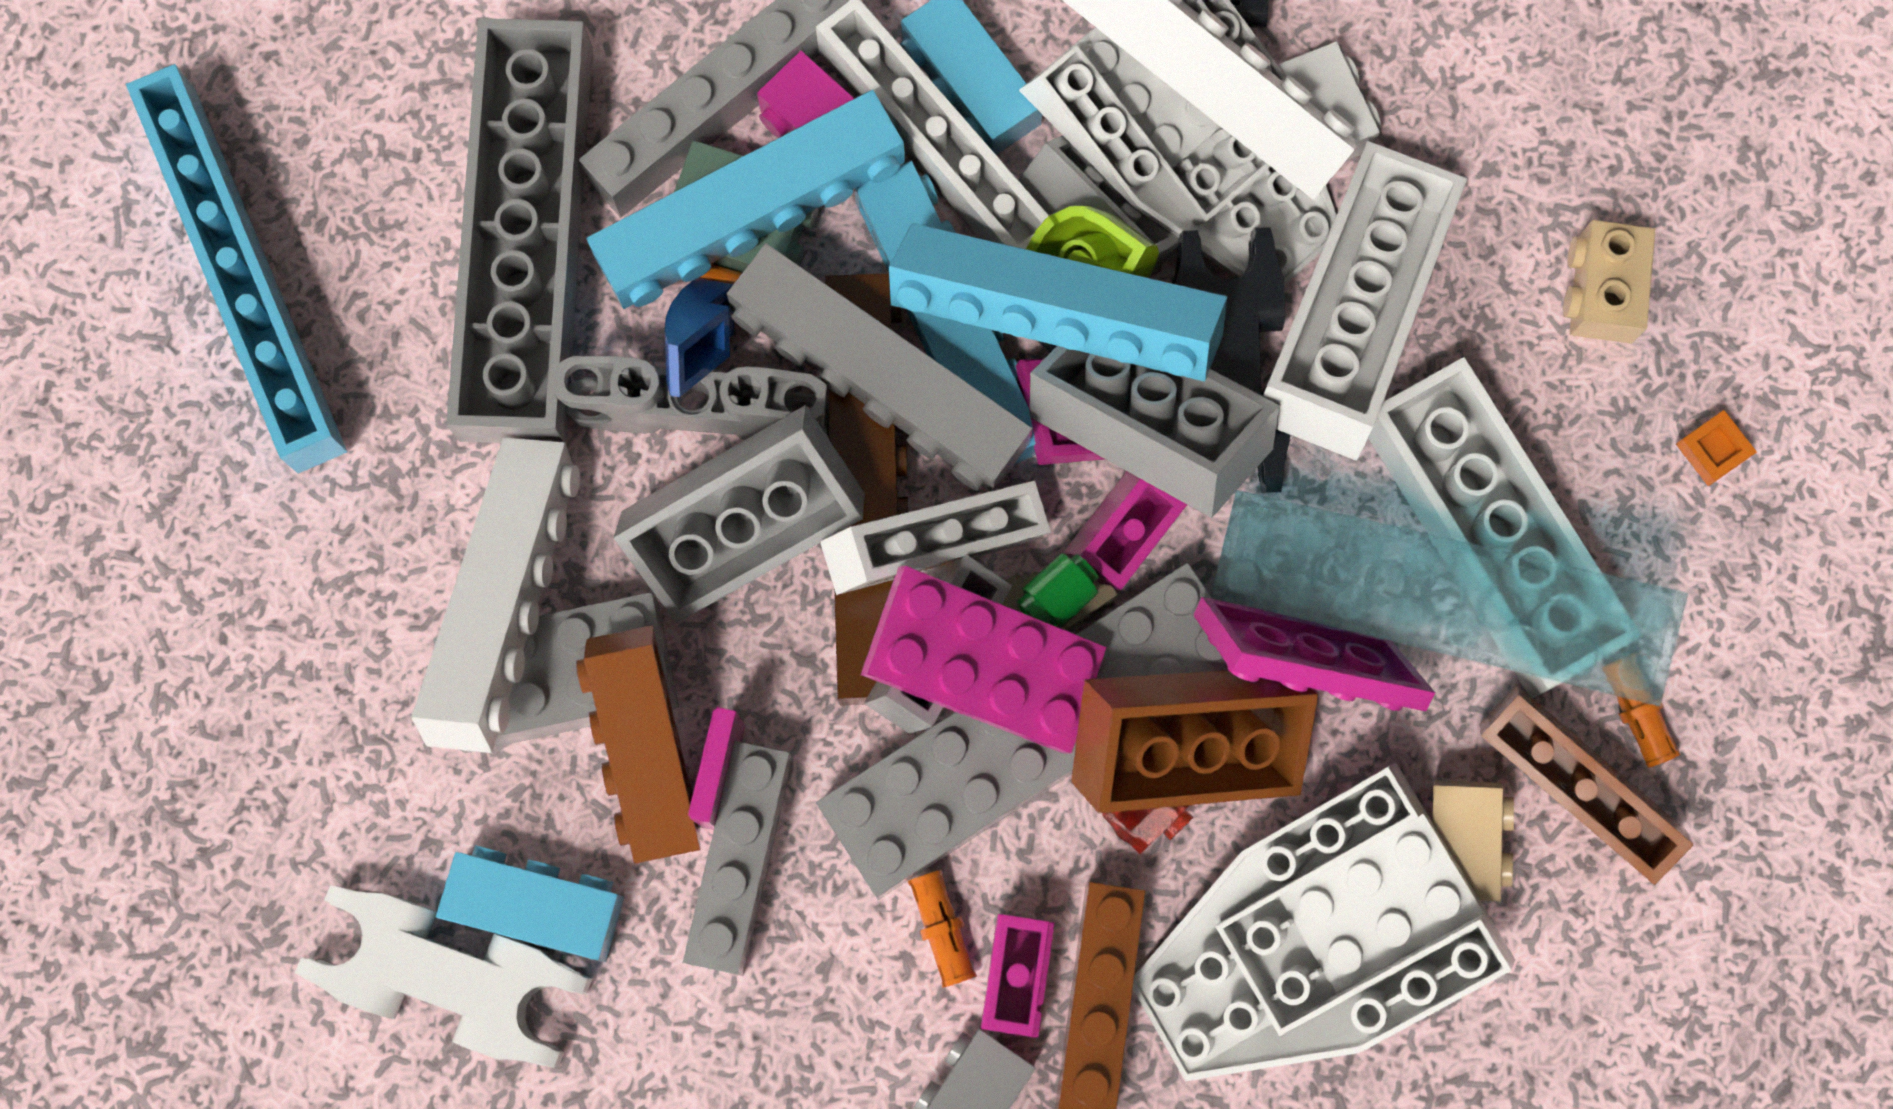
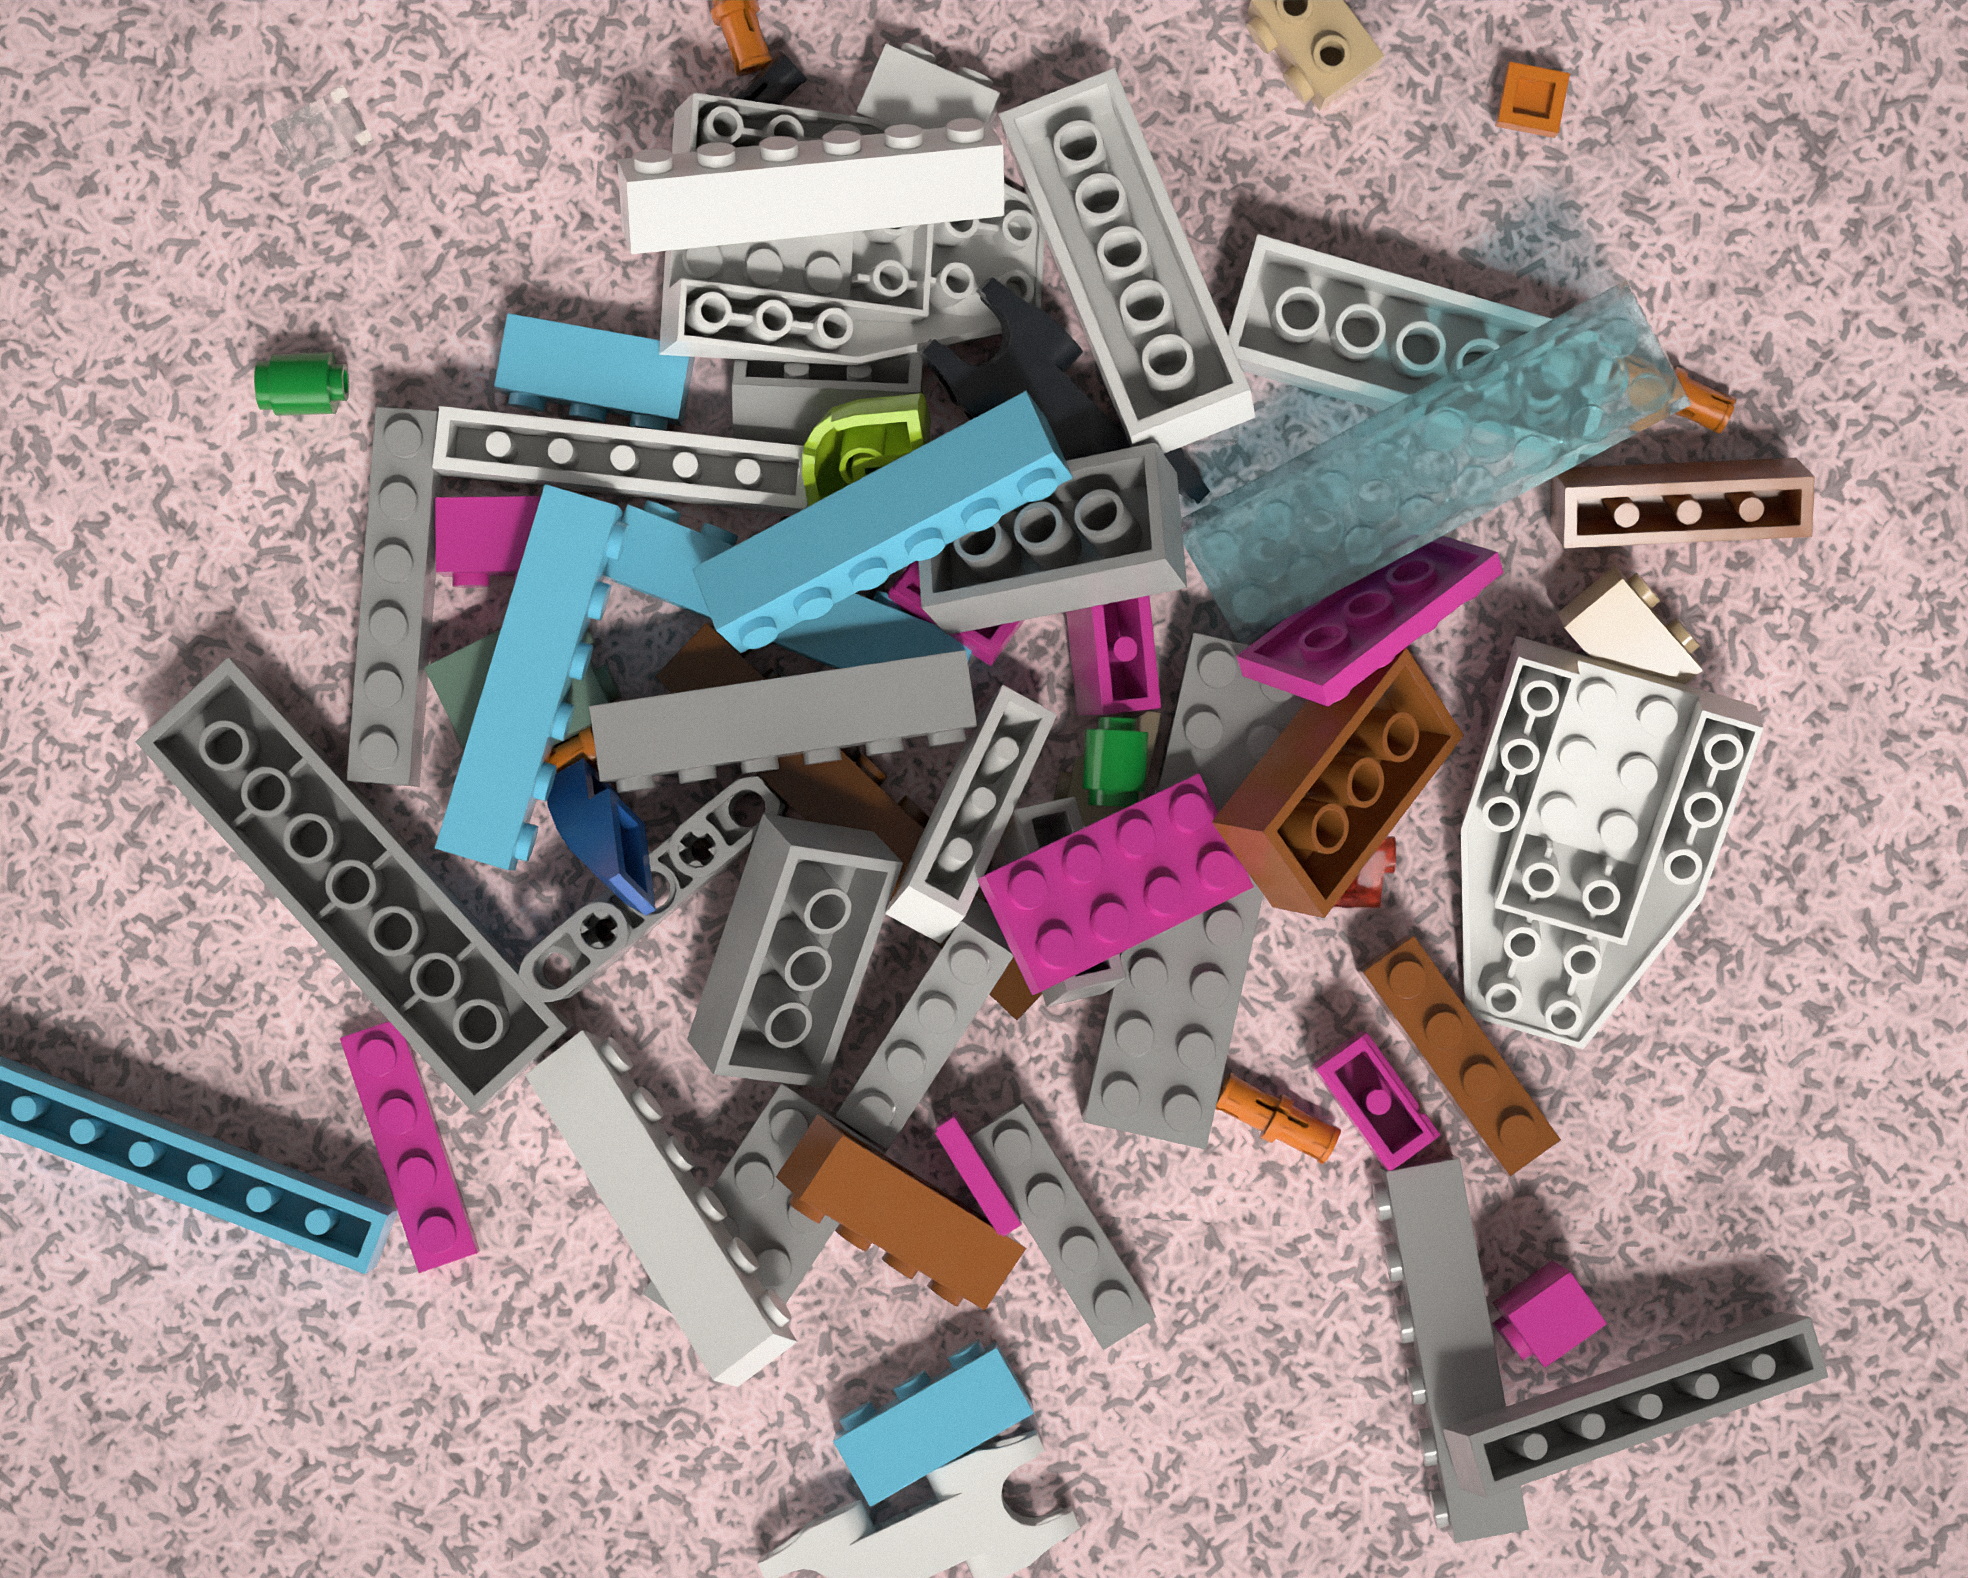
camera: 45 degrees left, 10 degrees up
(391, 423) = (410, 1146): none -> dark pink plate
(776, 645) = (928, 1027): none -> light grey brick

